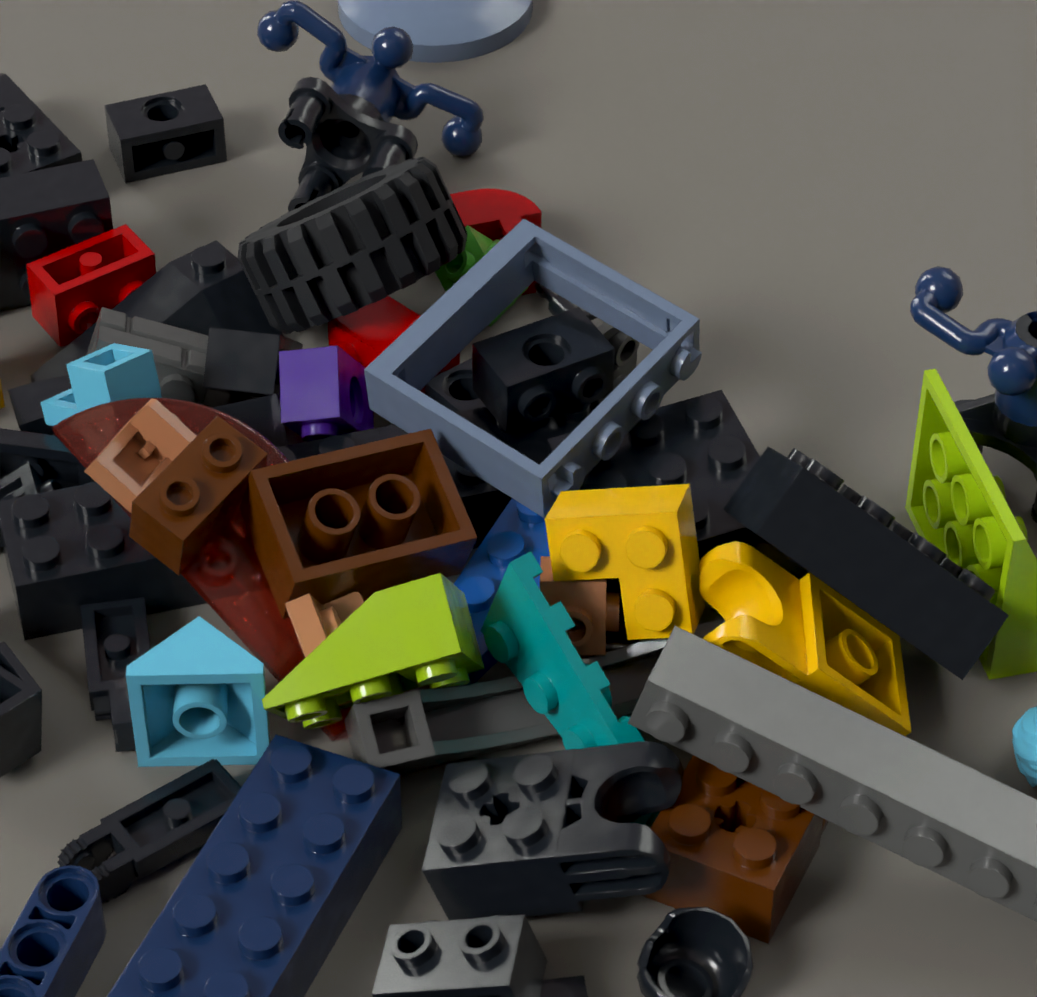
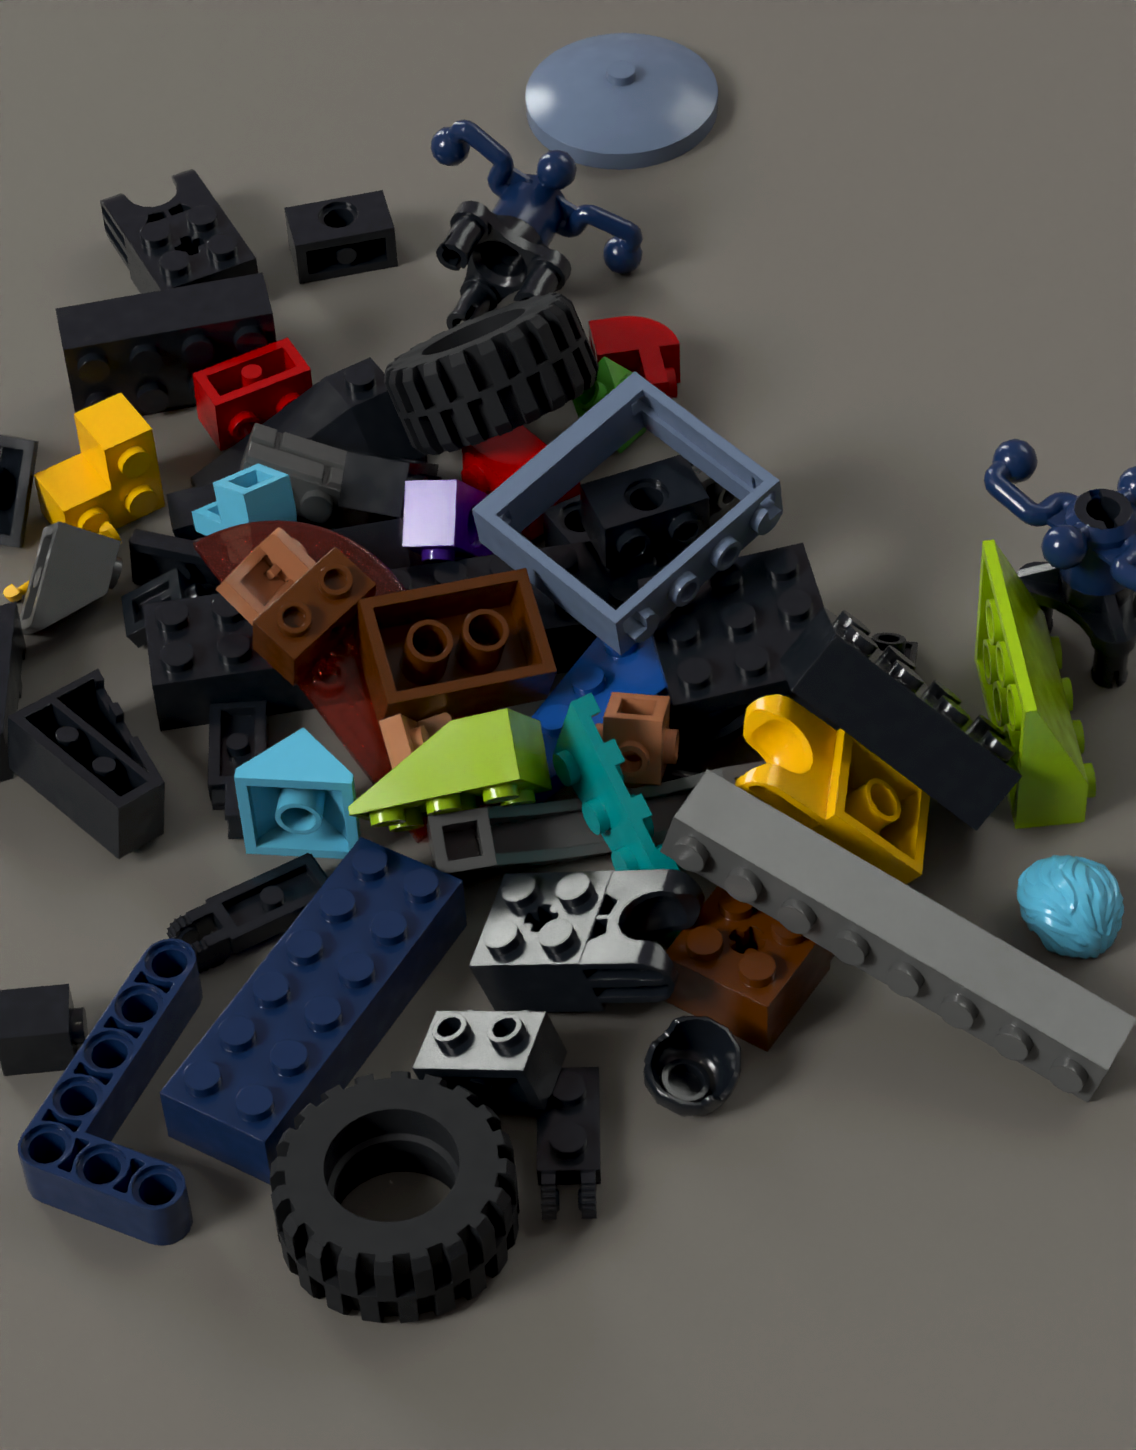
camera: 10 degrees right, 5 degrees up
(643, 540) = (695, 685): yellow brick -> none

